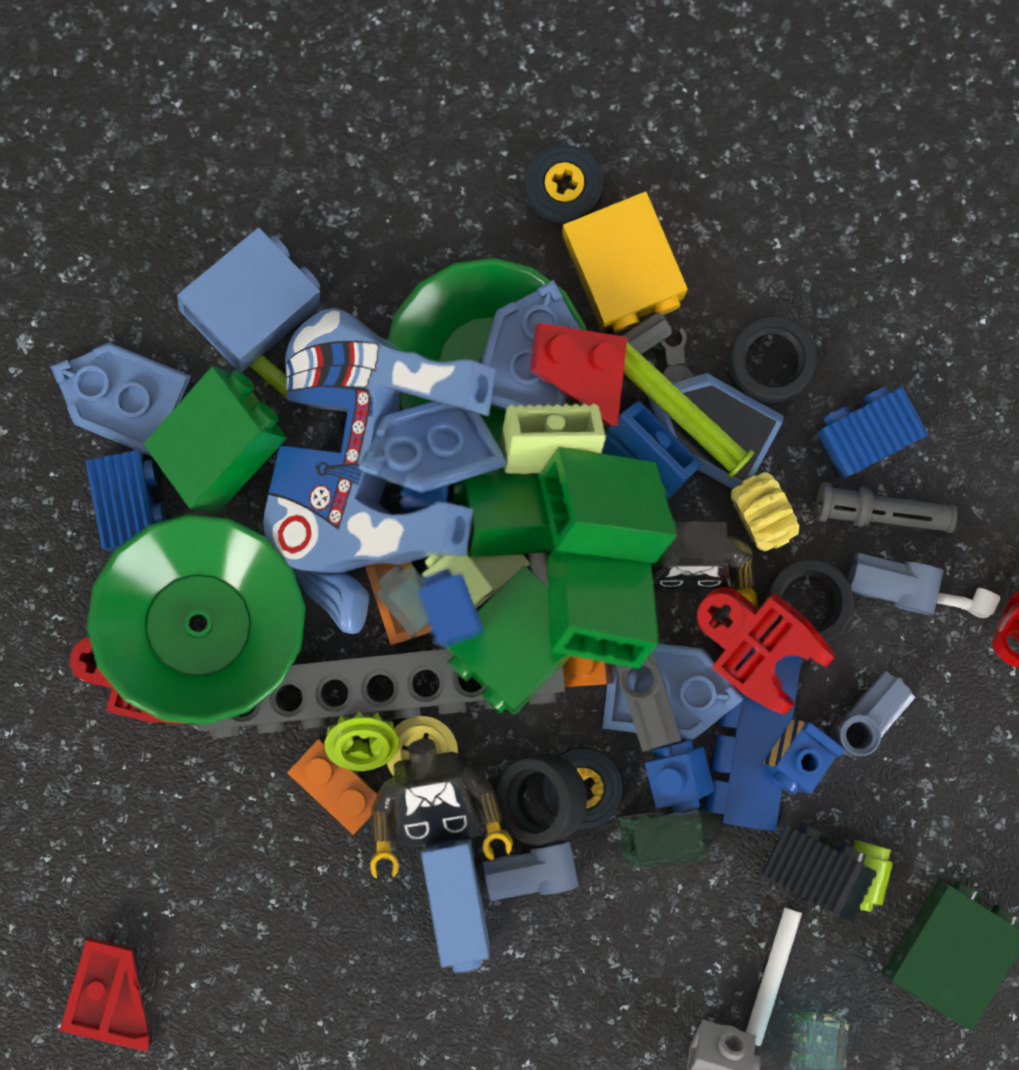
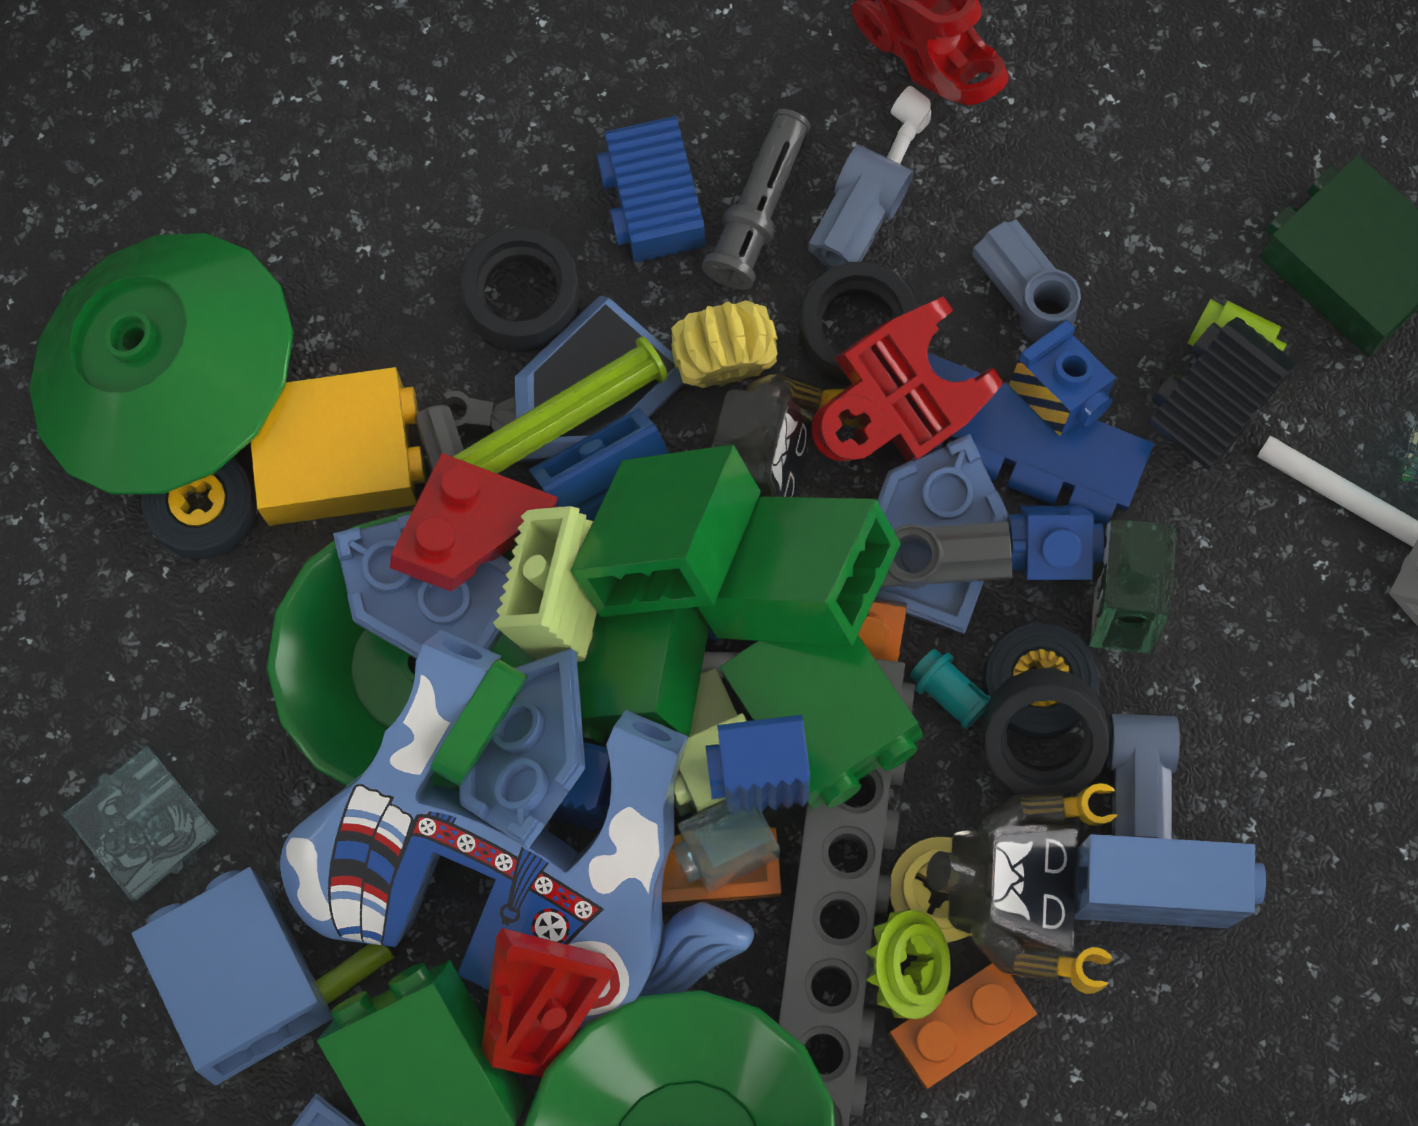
camera: 75 degrees left, 10 degrees down
(269, 502) = (538, 999): none -> red wing
(338, 212) = (140, 824): none -> clear light blue piece
(437, 413) = (478, 722): none -> green beam
(561, 726) = (949, 687): none -> teal pin
(646, 157) = (192, 386): none -> green dish

